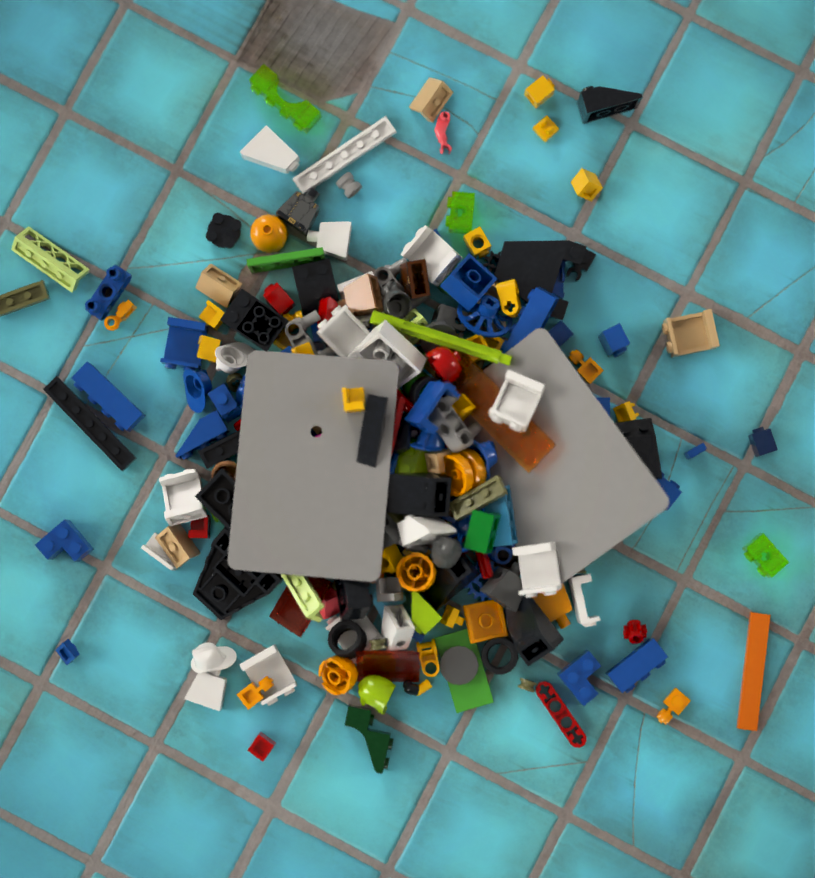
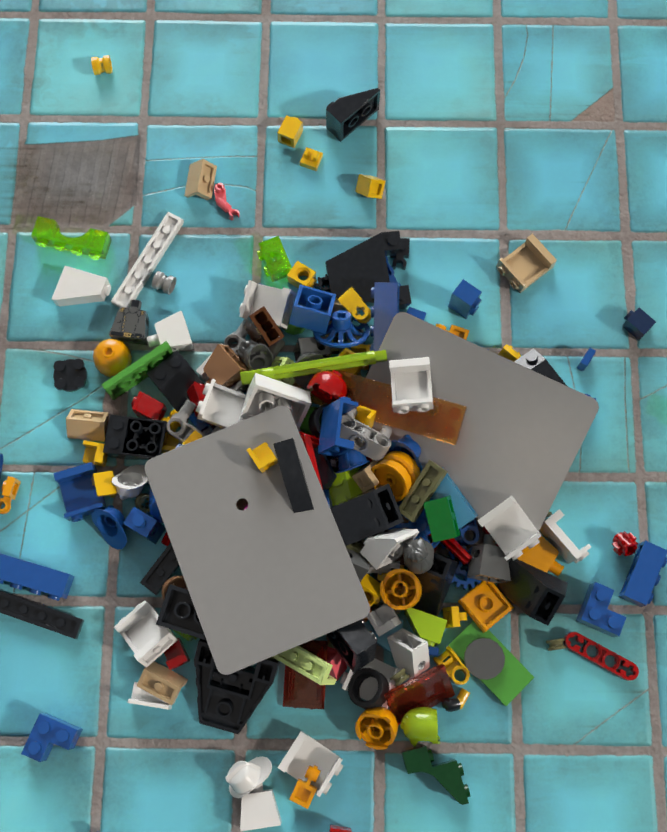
camera: 30 degrees left, 10 degrees down
(206, 430) = (138, 561): blue slope -> none
(499, 670) = (530, 626): black tyre -> none

